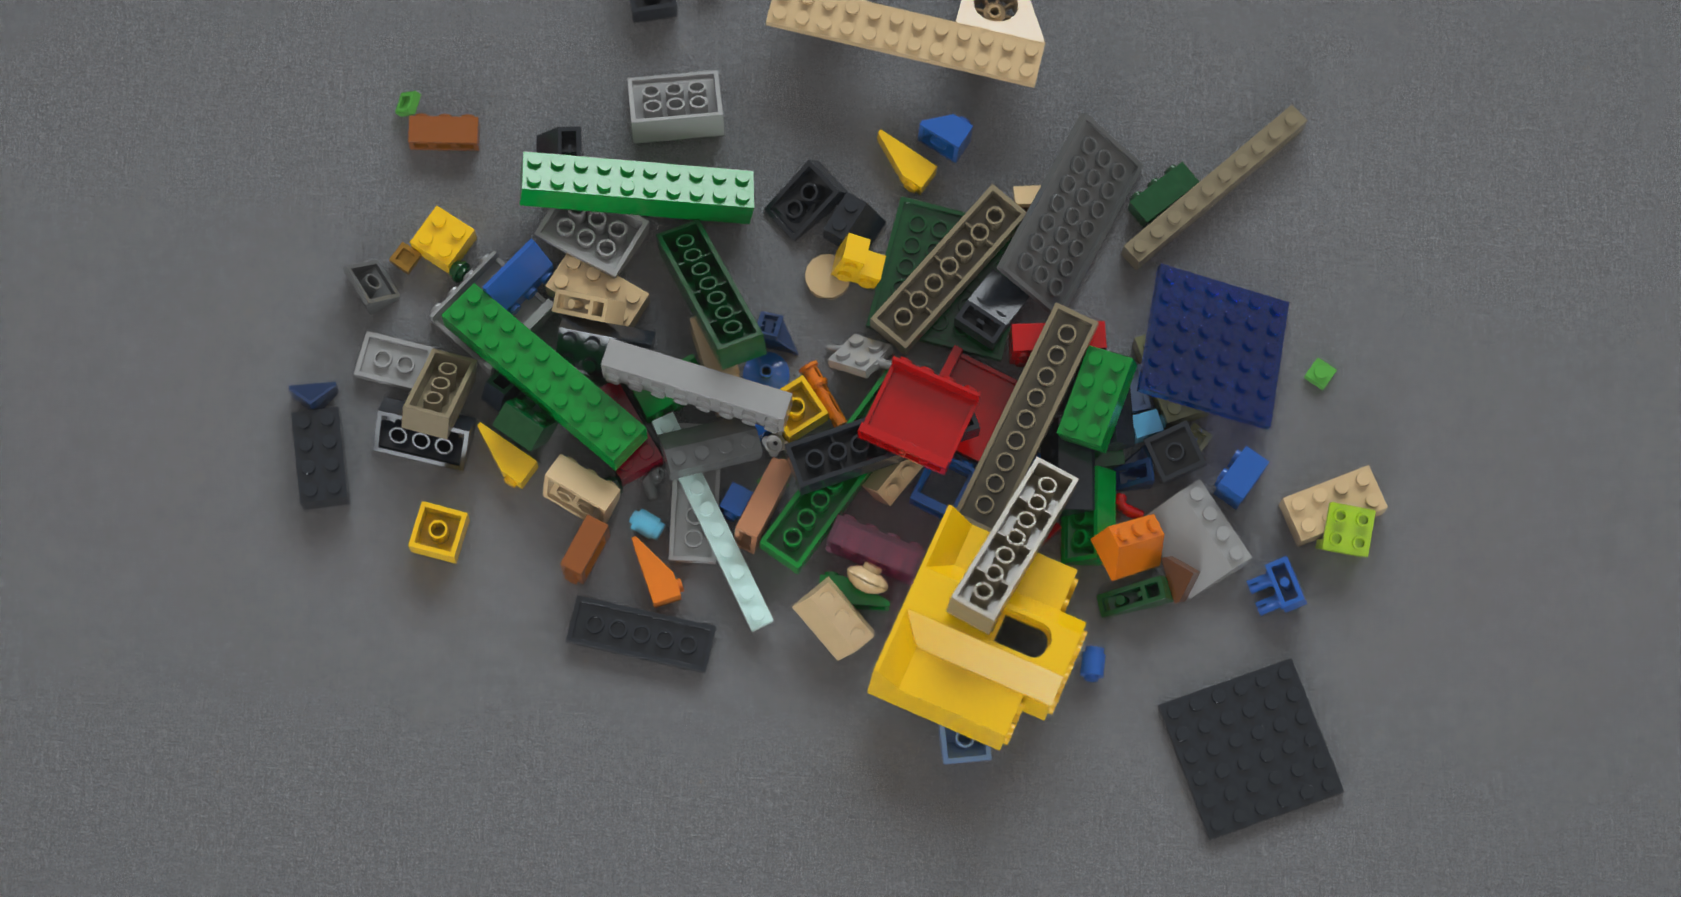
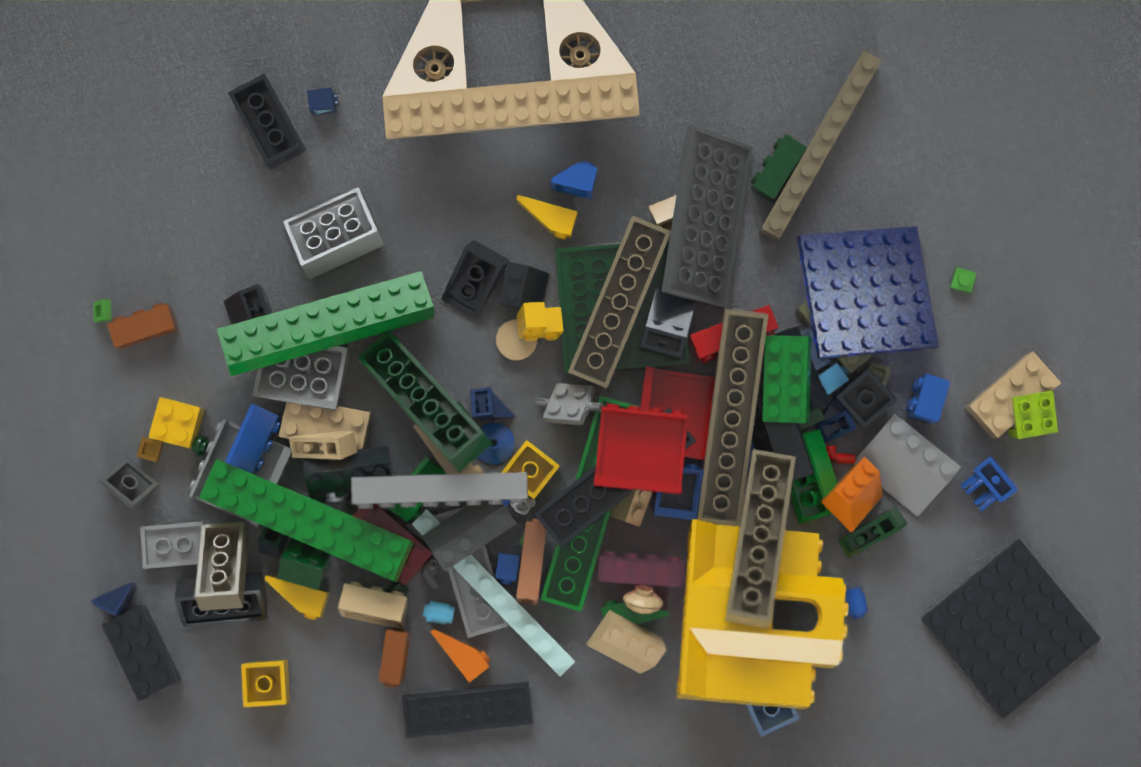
camera: 10 degrees left, 10 degrees up
(819, 386) = (541, 439): orange pin -> none
(1180, 578) = (903, 502): reddish brown slope -> none

